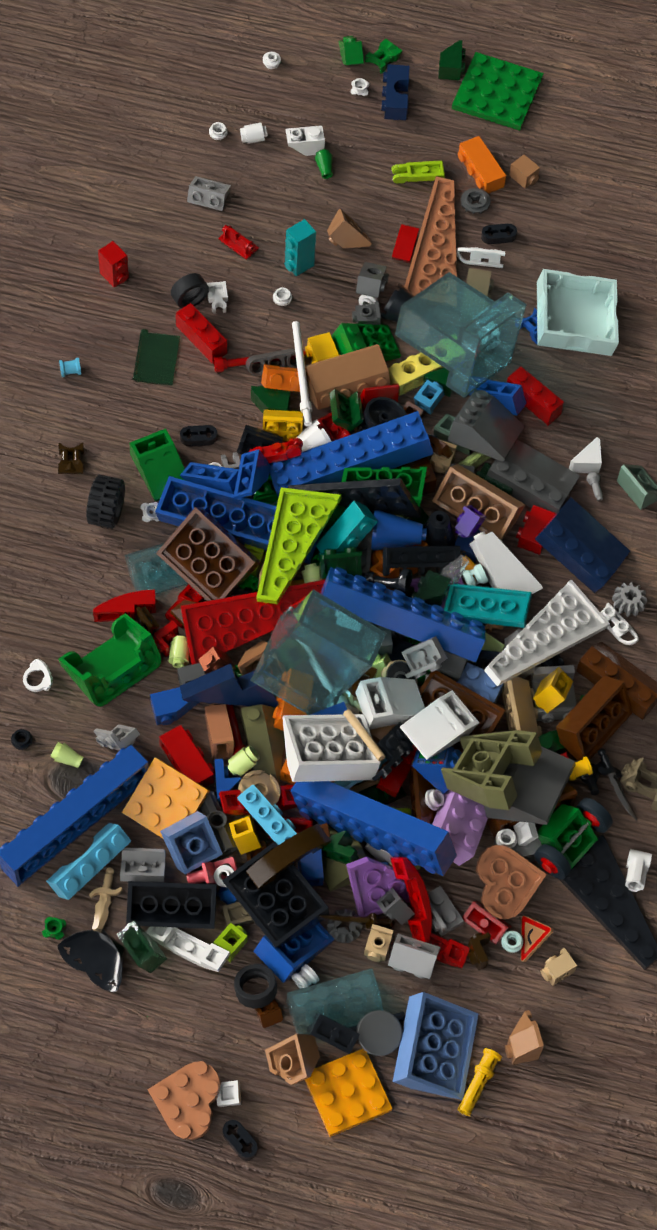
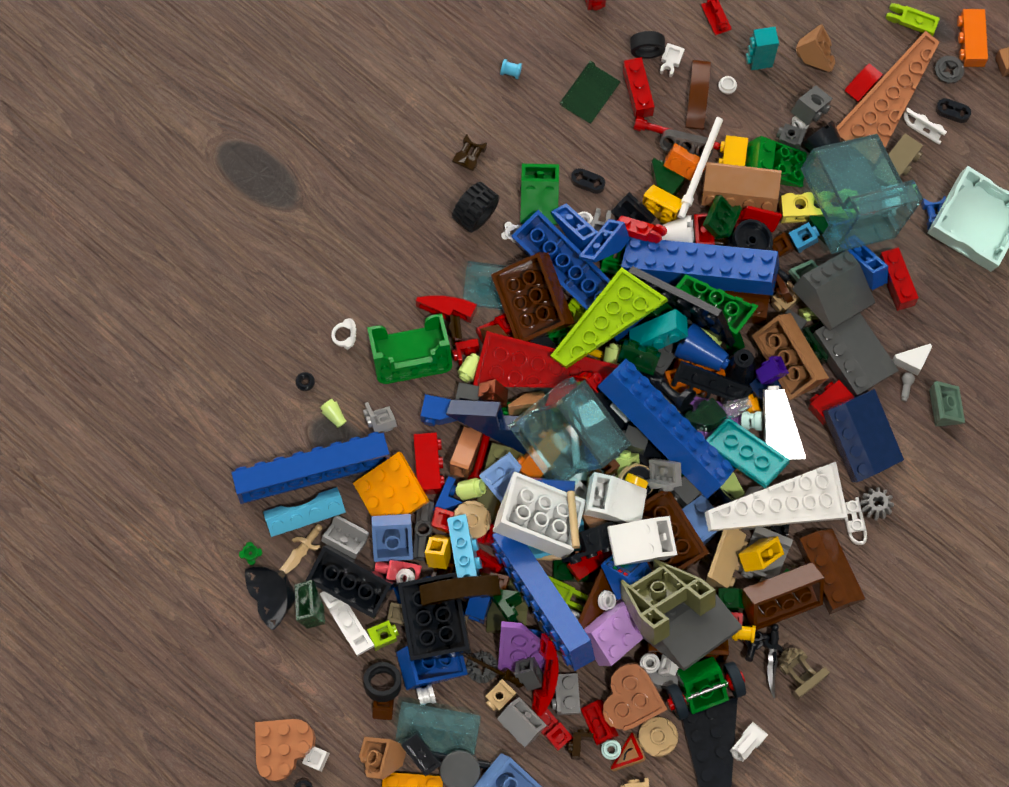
camera: 30 degrees right, 10 degrees up
(261, 317) = (698, 94): none -> reddish brown slope
(268, 733) = (499, 475): none -> light blue wing
(402, 674) = (636, 480): none -> yellow tile
(550, 907) = (658, 736): none -> tan tile

